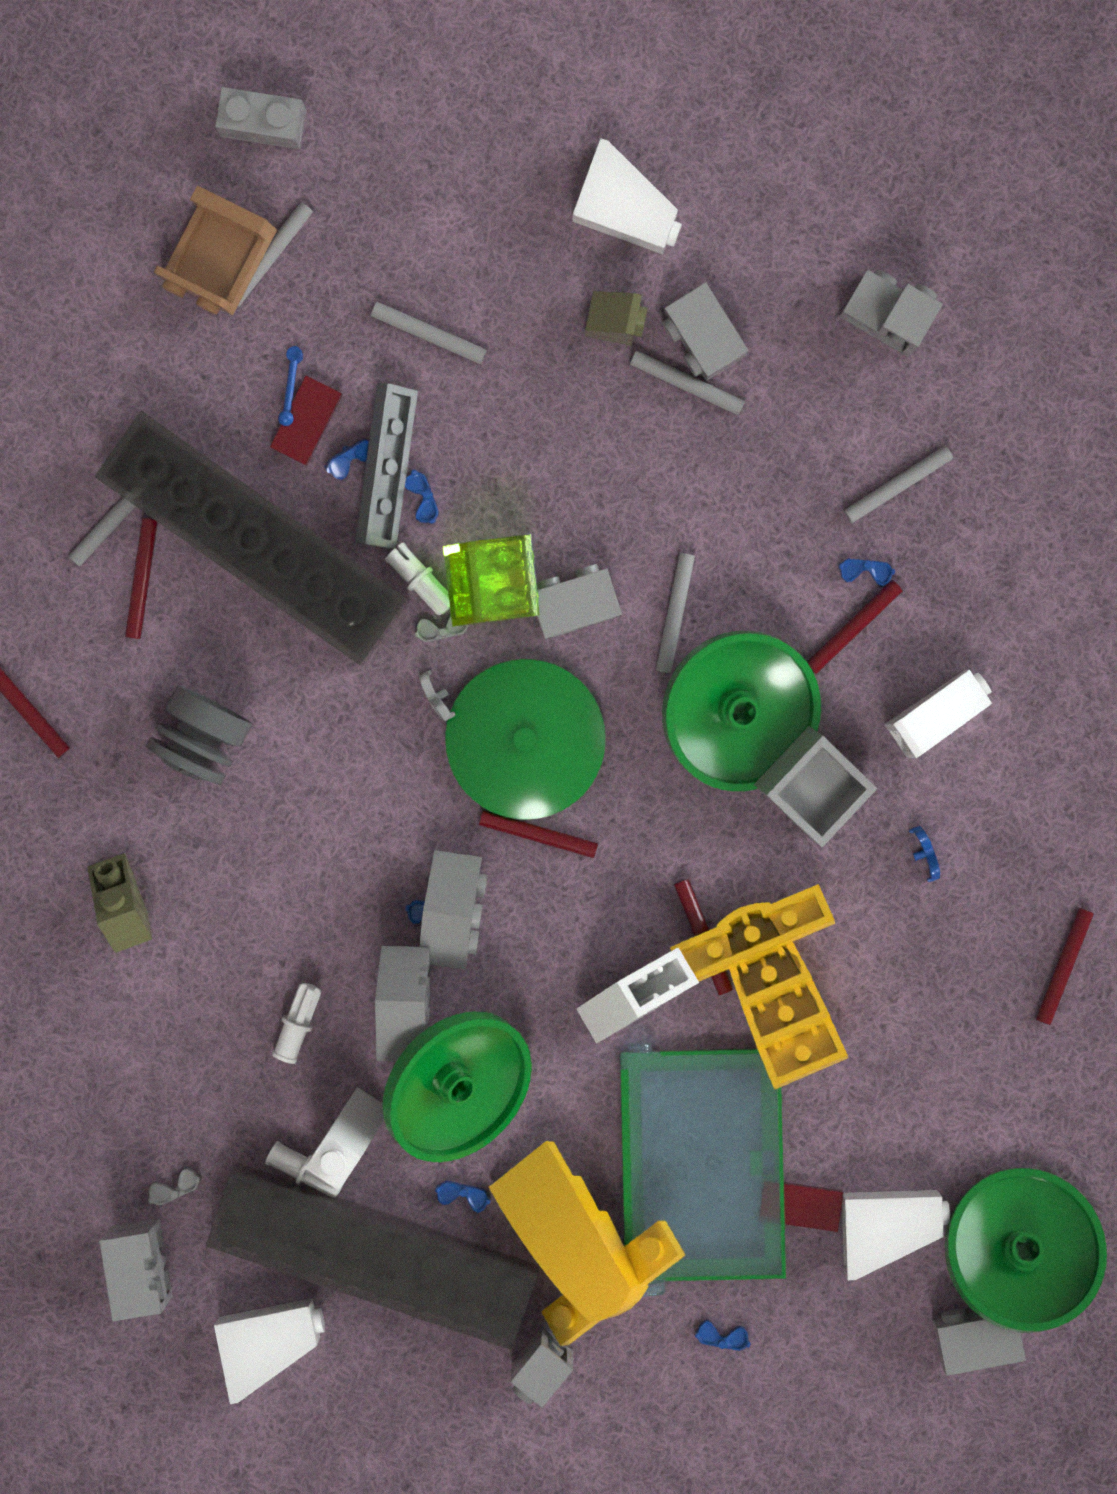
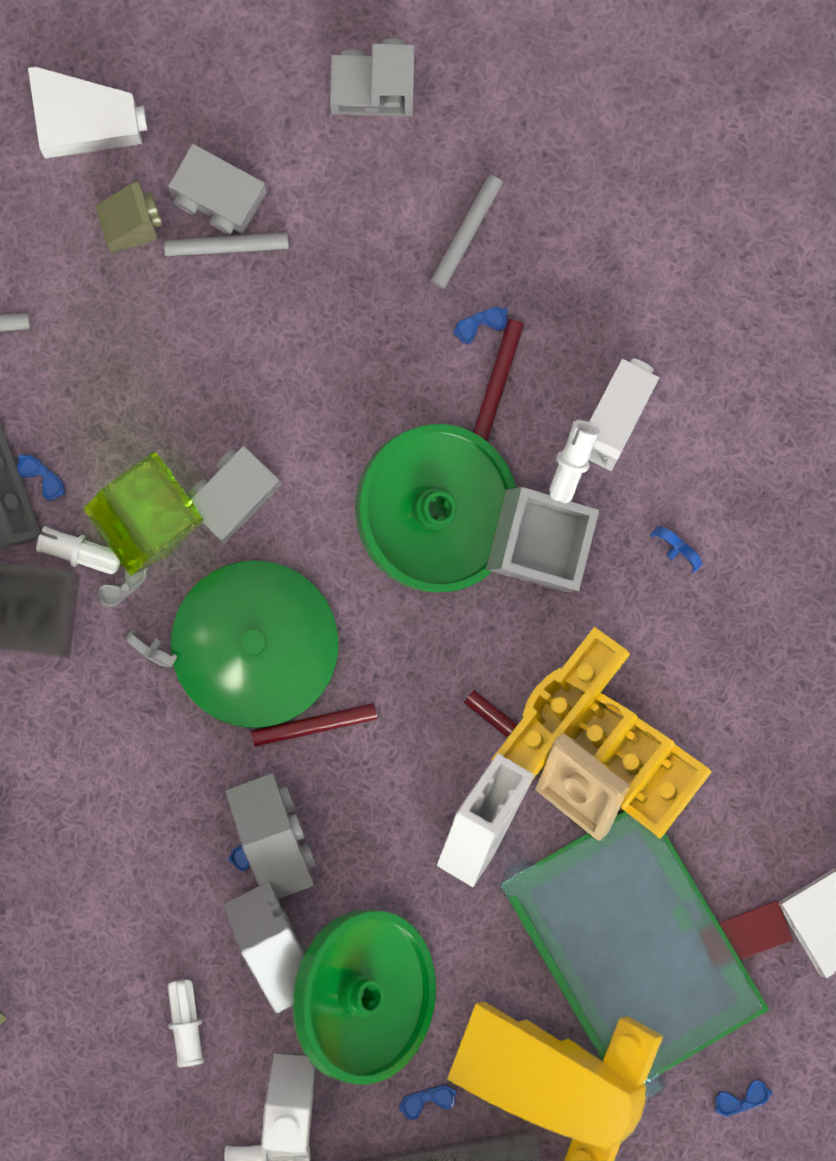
camera: 30 degrees left, 5 degrees down
(675, 613) = (329, 455): light grey bar -> none
(732, 1012) = (581, 787): none -> tan tile
(878, 738) = (573, 460): none -> white axle

